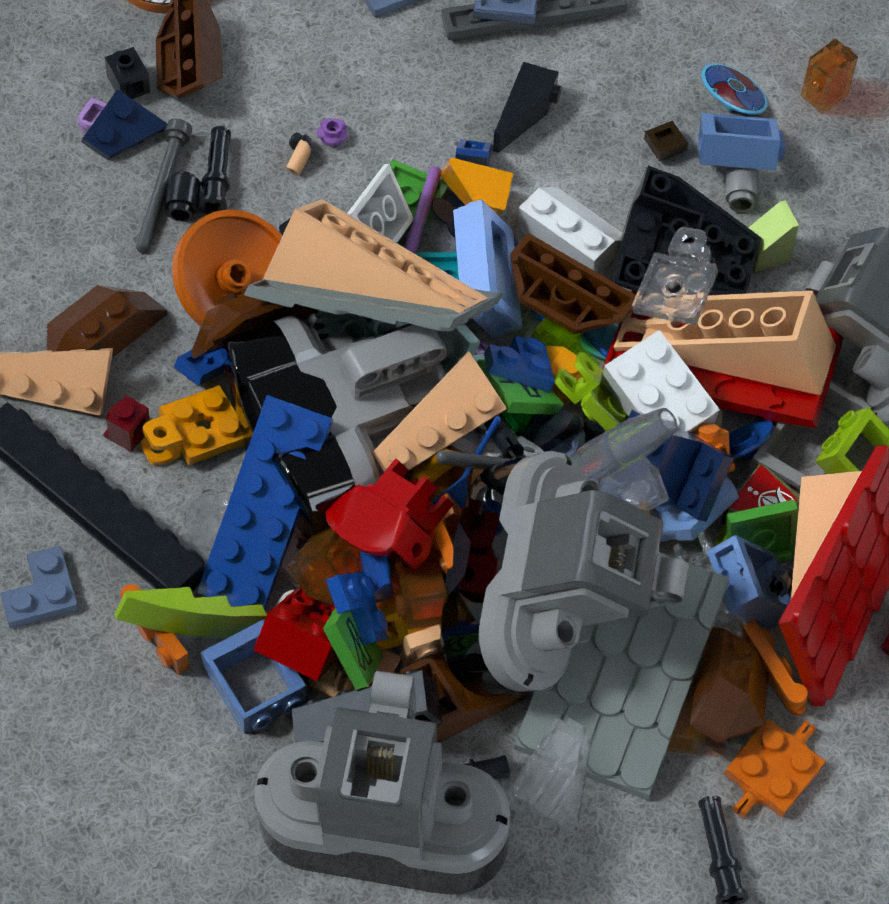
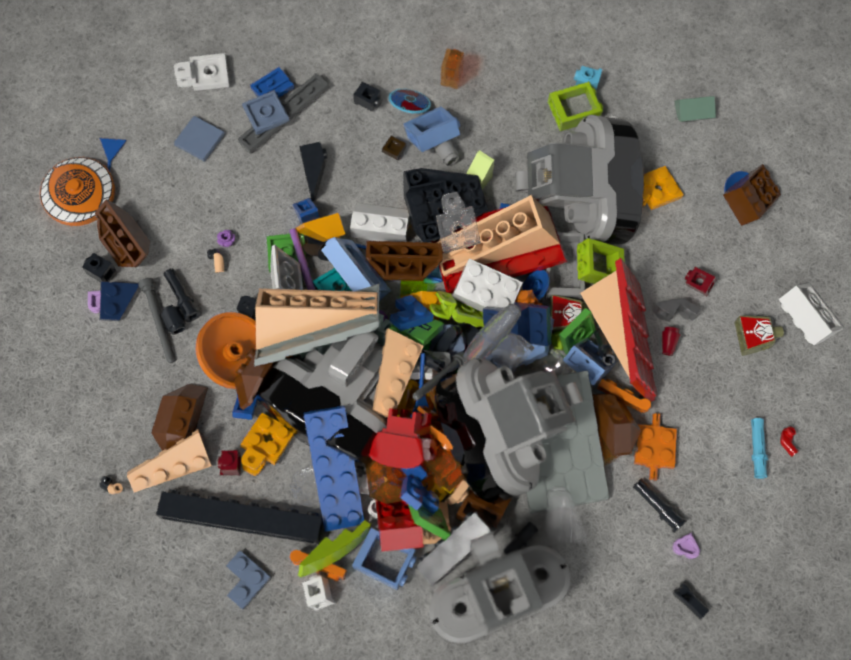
camera: 30 degrees left, 10 degrees up
(128, 664) = (311, 589): none -> white brick
(674, 51) = (367, 96): none -> black brick

